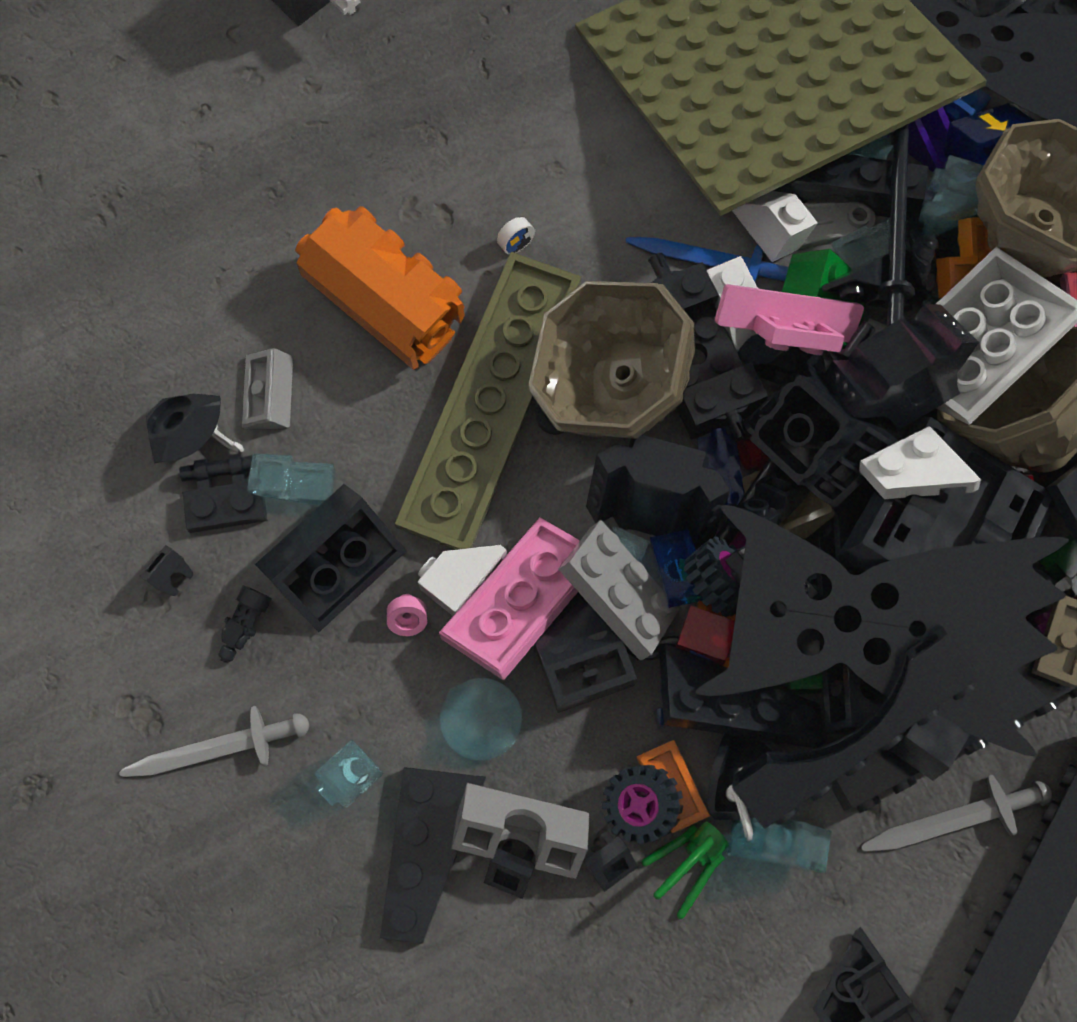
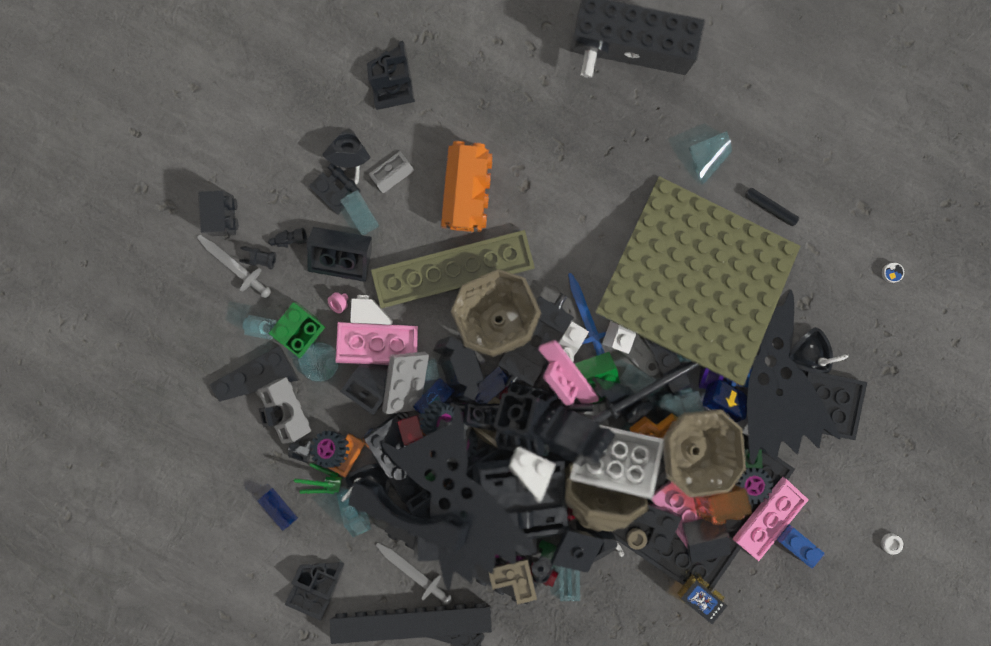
camera: 55 degrees right, 15 degrees up
(104, 698) = (217, 213): none -> black brick
(128, 291) = (391, 78): none -> black slope
(161, 569) = (286, 189): black tile -> none
(236, 691) = (259, 258): none -> black piece
(401, 710) = (297, 329): none -> green slope
(515, 235) = (534, 225): white tile -> none
(685, 979) = (277, 509): none -> clear blue hinge

